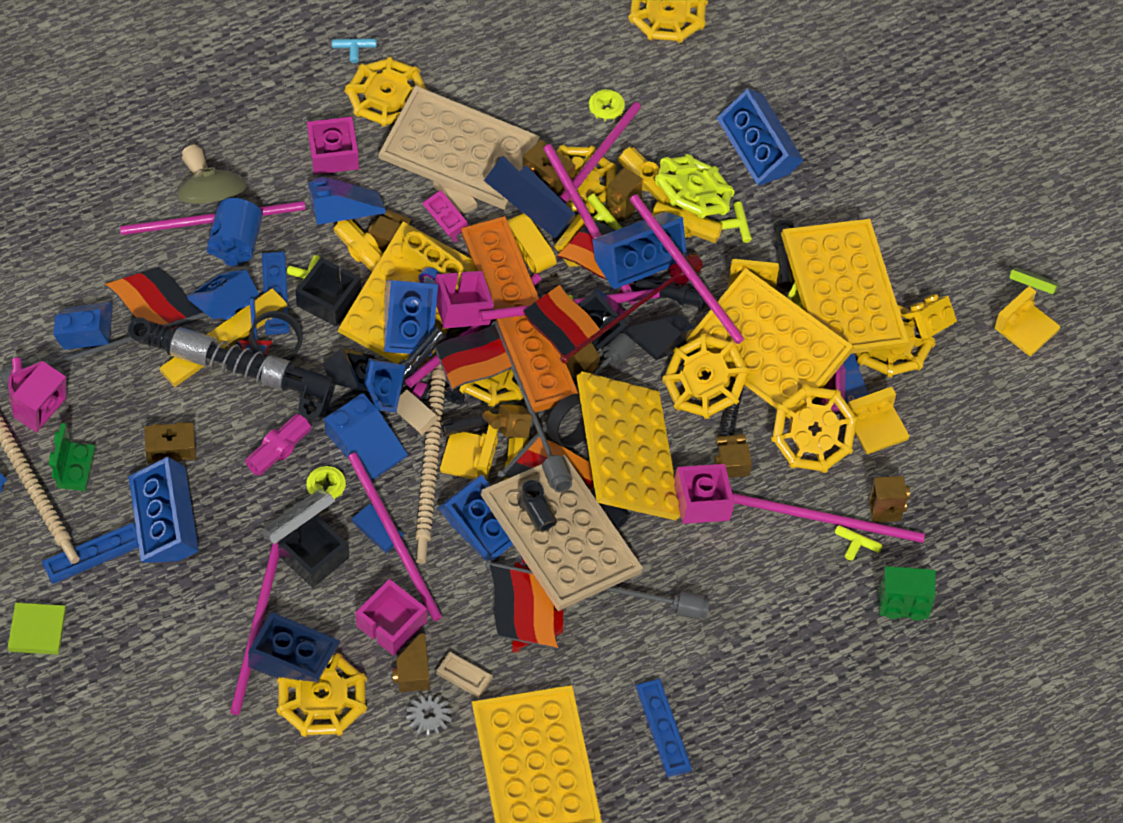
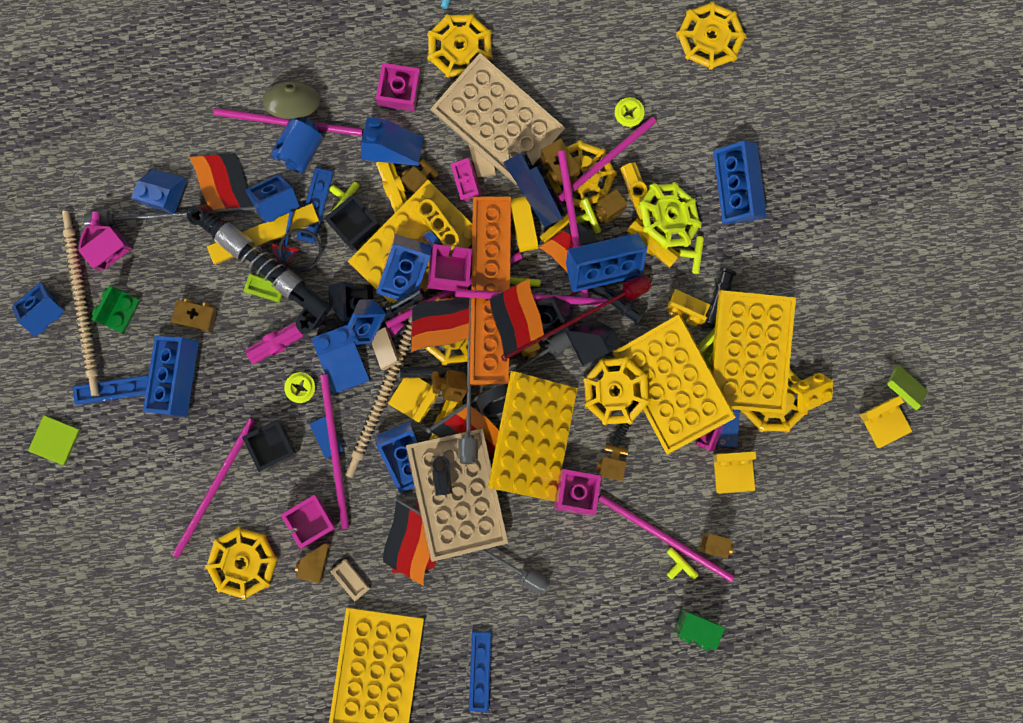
camera: 20 degrees right, 25 degrees up
(194, 158) = (290, 66): tan cone -> none
(244, 393) = (257, 286): none -> lime tile
(291, 650) = (227, 527): dark blue slope -> none
(297, 516) = (265, 416): light grey tile -> none
(431, 723) = (314, 595): light grey gear -> none
(687, 269) = (632, 299): dark pink piece -> none
(806, 417) = (686, 476): yellow plate -> none

